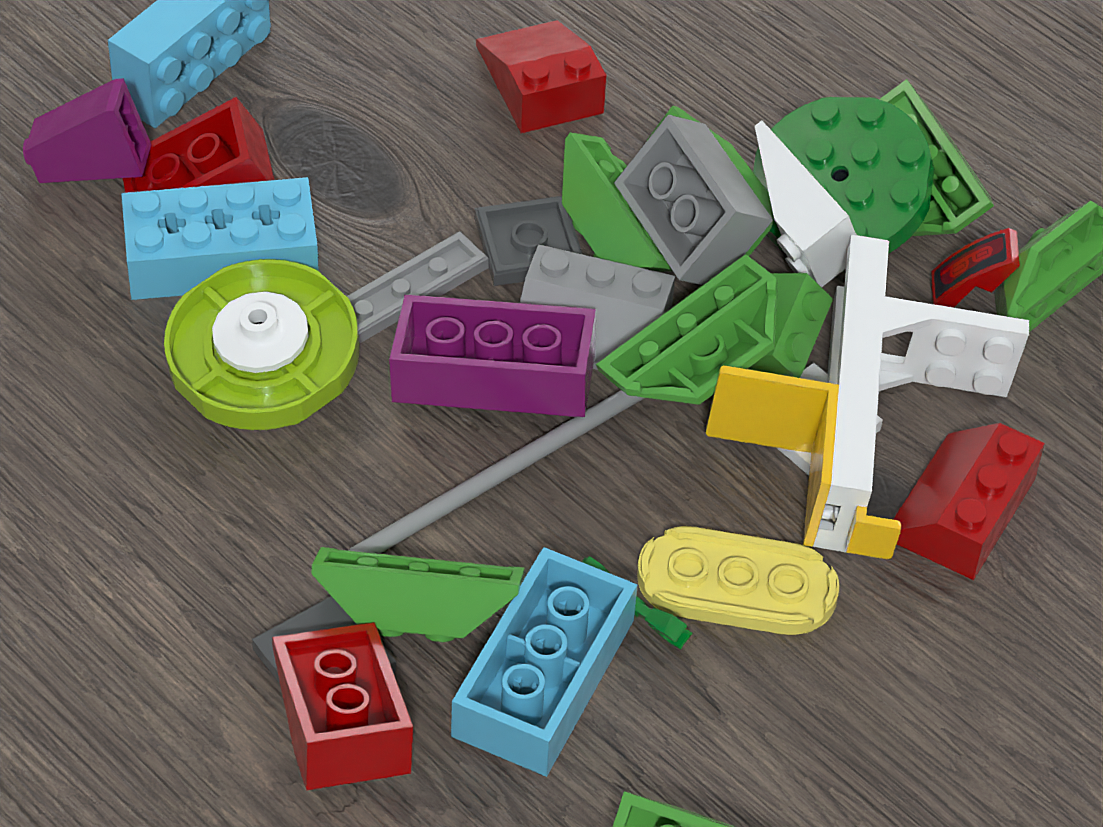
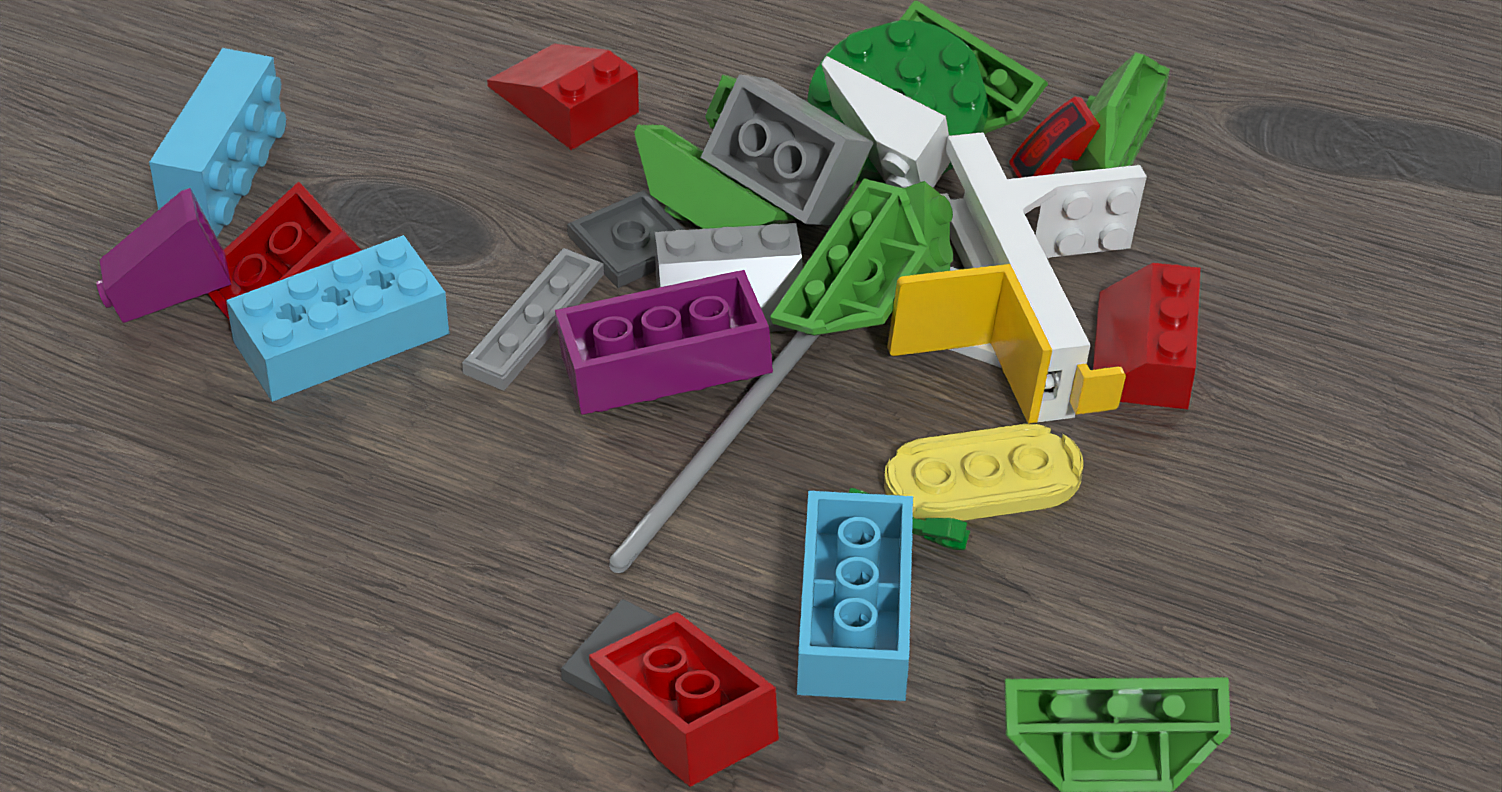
camera: 20 degrees left, 5 degrees down
(262, 344) = (431, 399): lime piece -> none
(415, 593) = (707, 572): bright green wedge -> none

